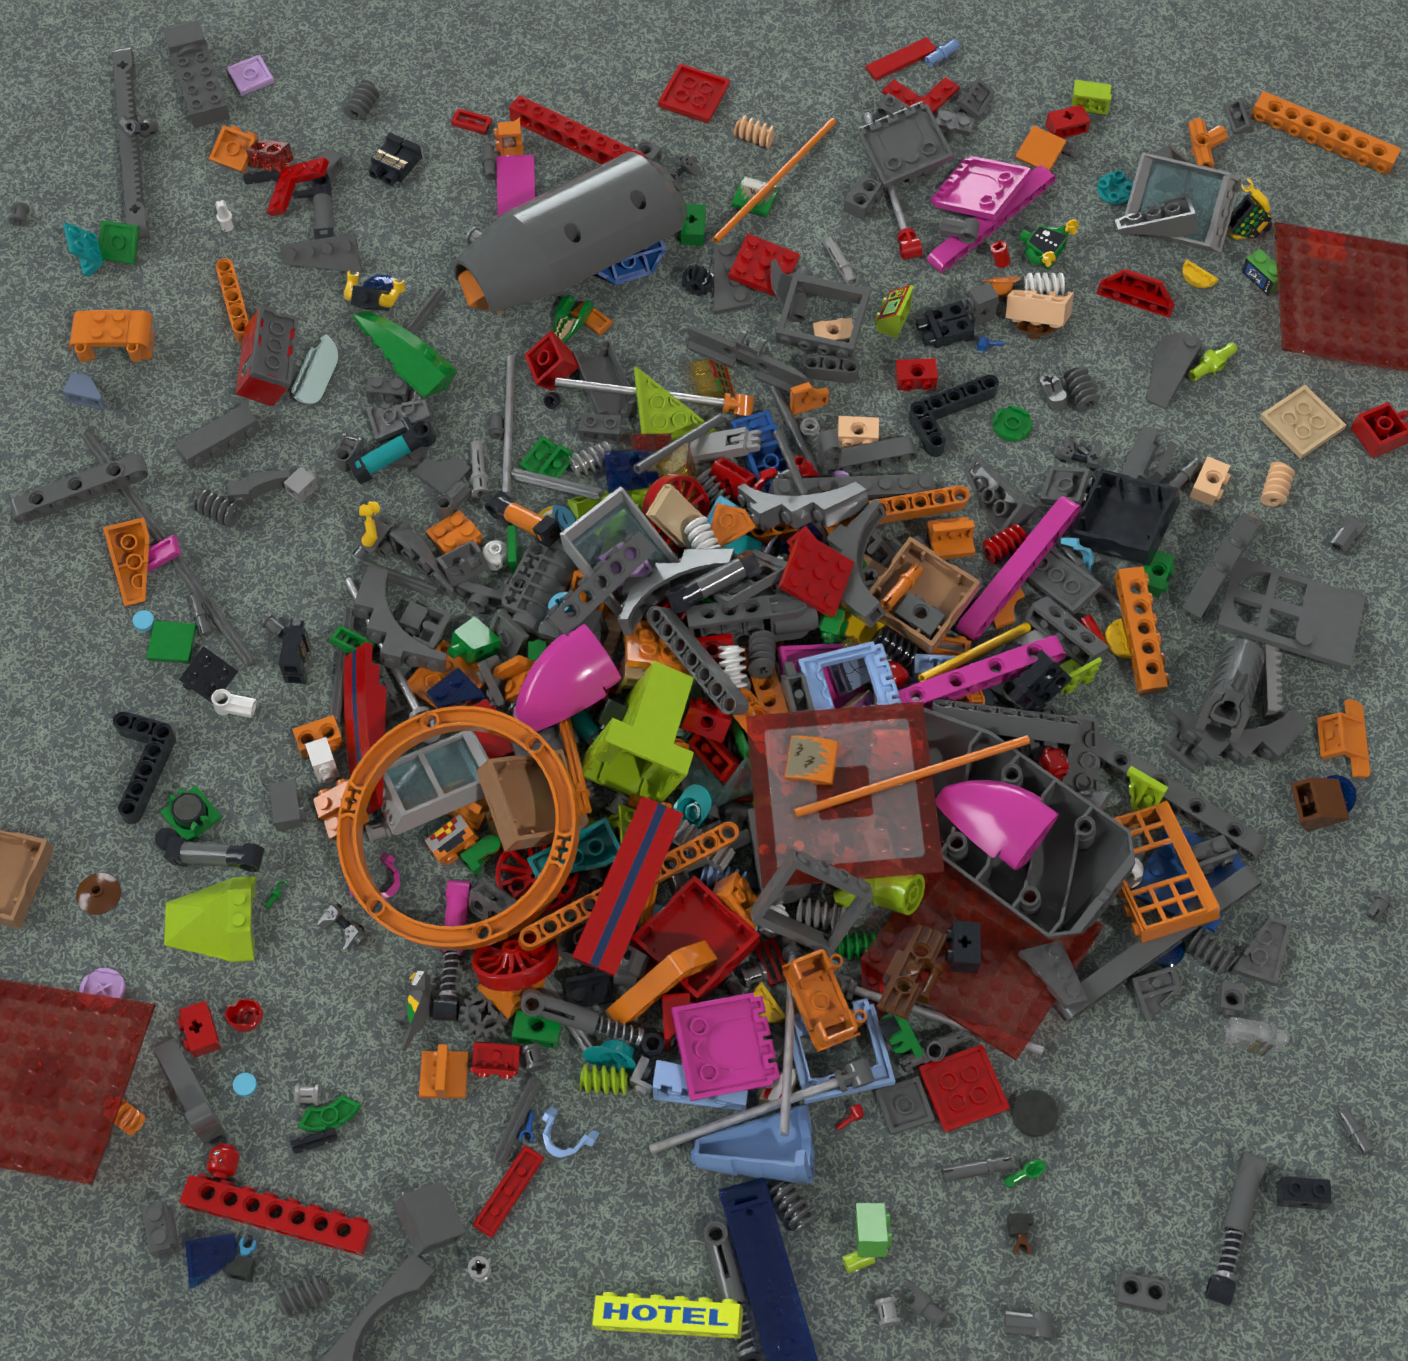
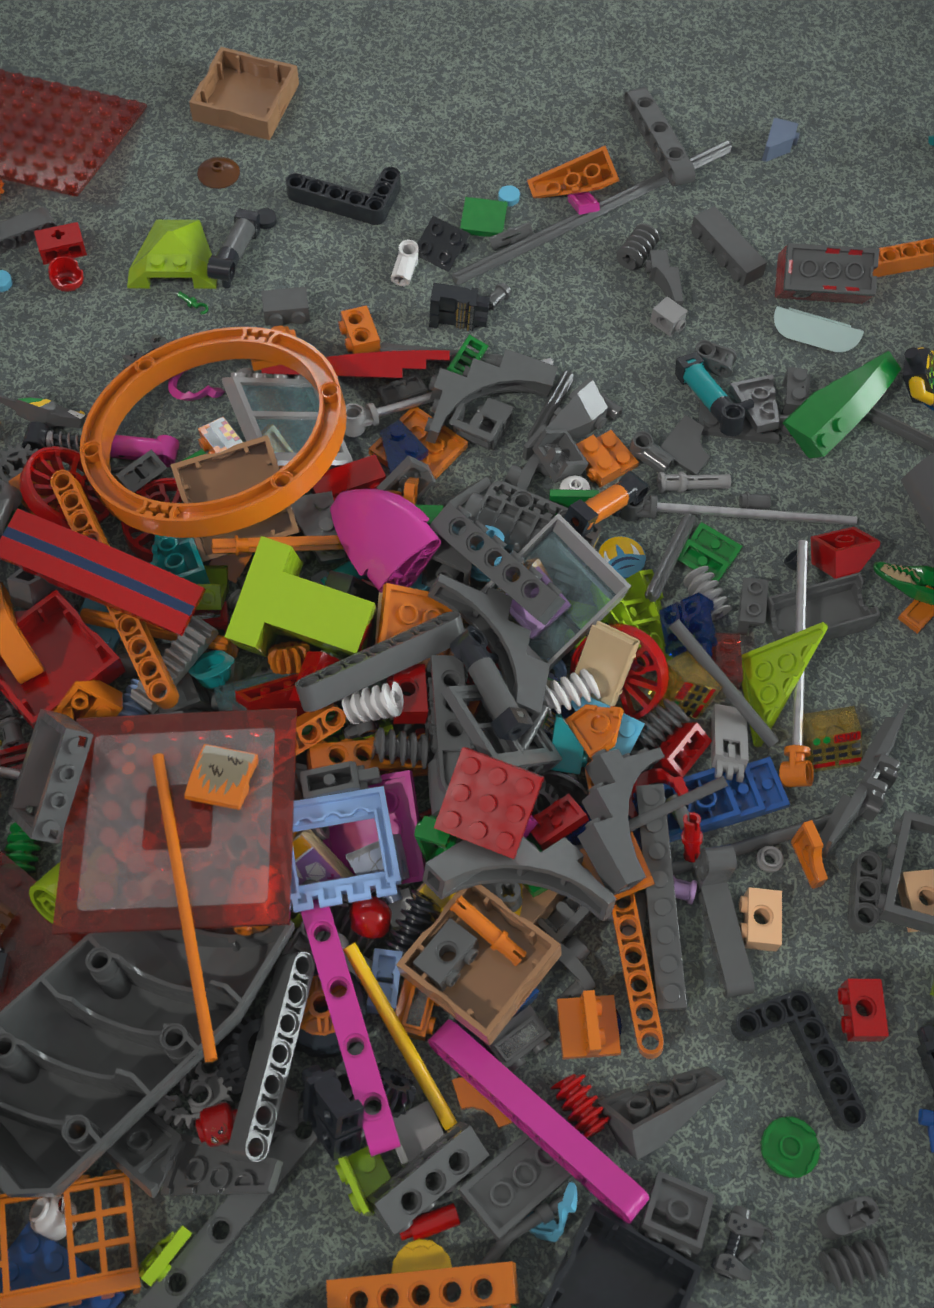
camera: 90 degrees right, 0 degrees up
(104, 983) = (119, 177): lavender tile -> none
(112, 329) = (850, 153): orange container -> none
(189, 813) = (289, 234): piece -> none
(322, 760) = (326, 329): white brick -> none
(375, 530) = (605, 373): torso -> none
(474, 642) = (459, 465): green torso -> none
(849, 642) = (414, 864): clear yellow hinge -> none
(998, 818) = (117, 1012): dark pink panel -> none

